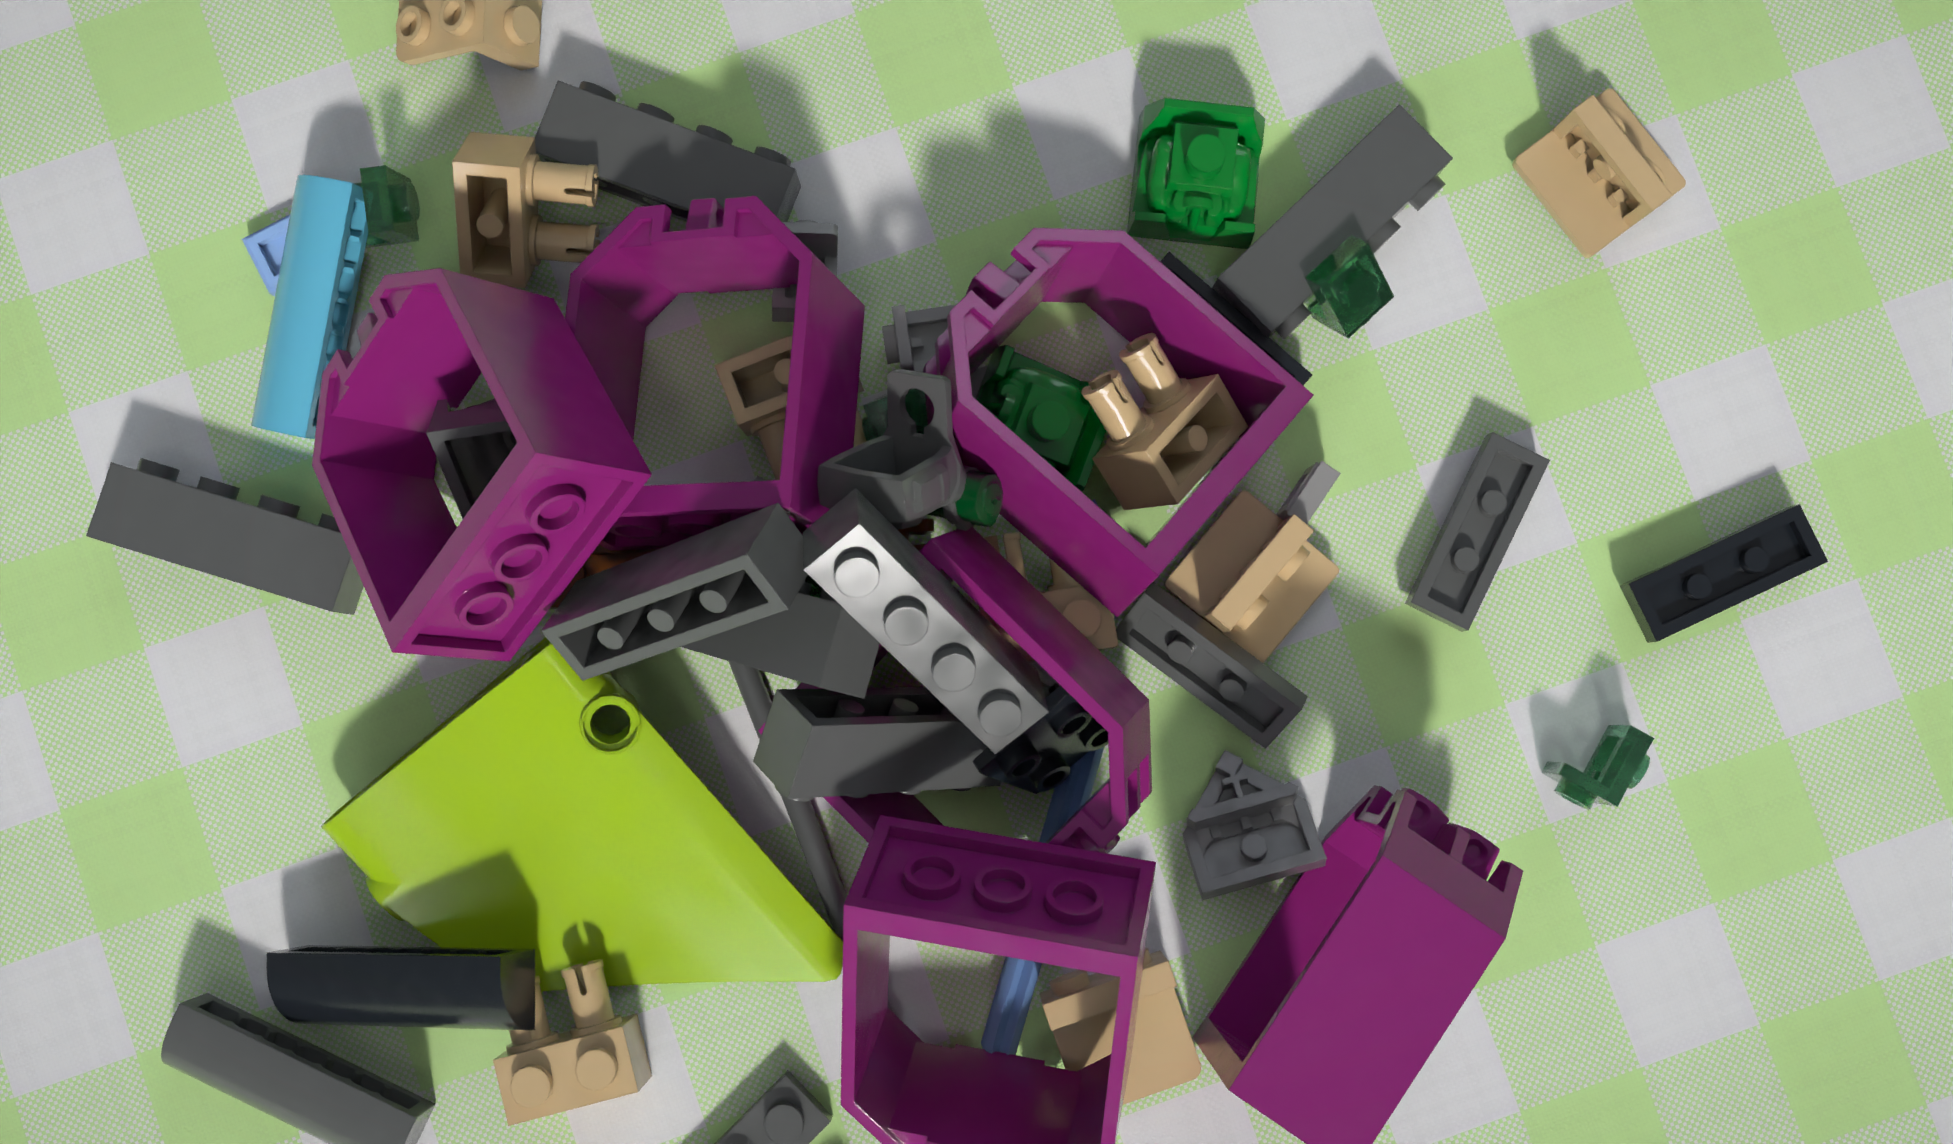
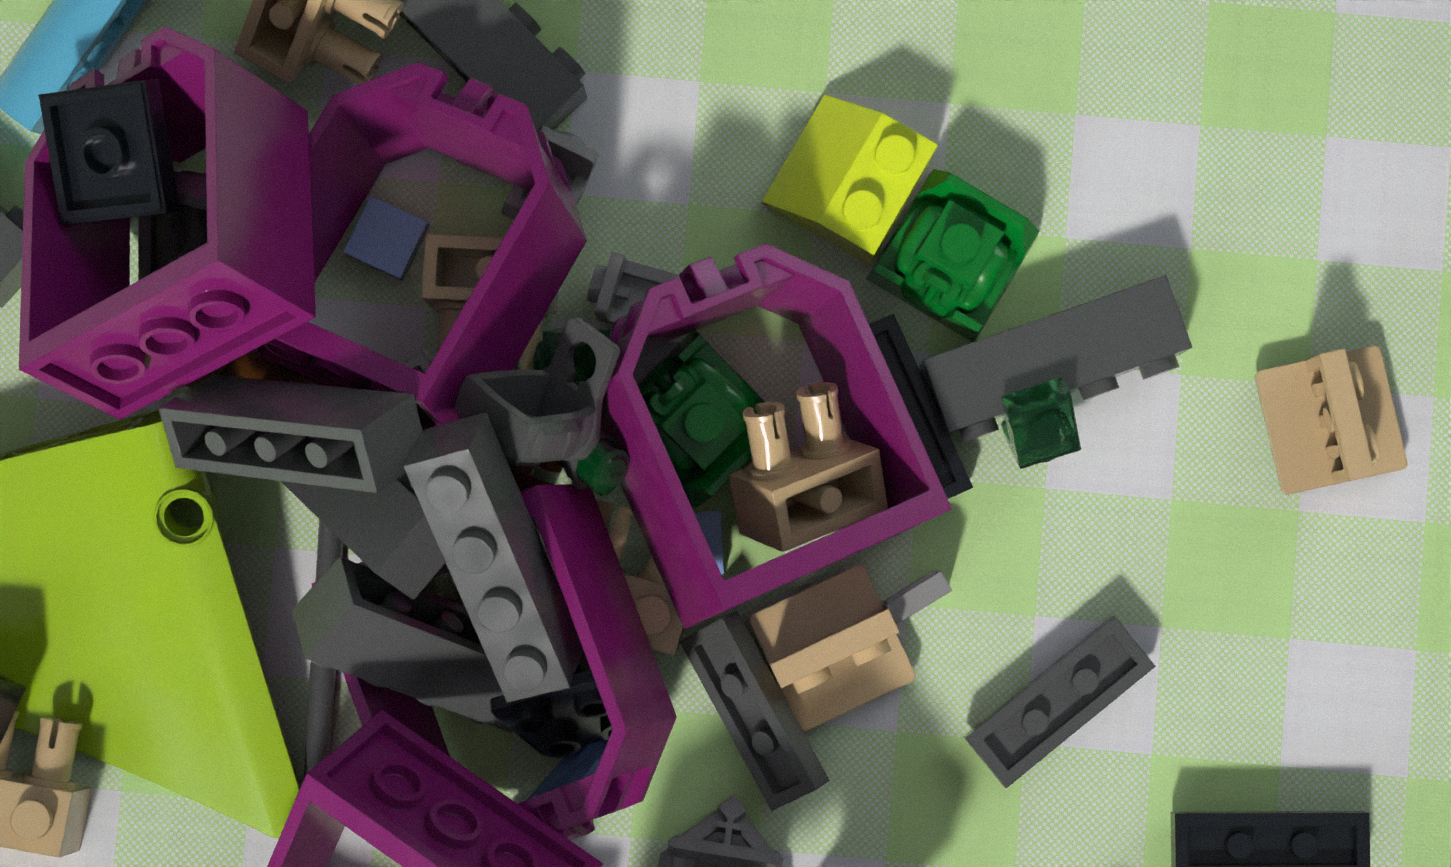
camera: 30 degrees right, 0 degrees up
(386, 416) = (109, 152): none -> black tile
(677, 392) = (386, 238): none -> light blue tile
(1073, 146) = (850, 176): none -> neon yellow slope

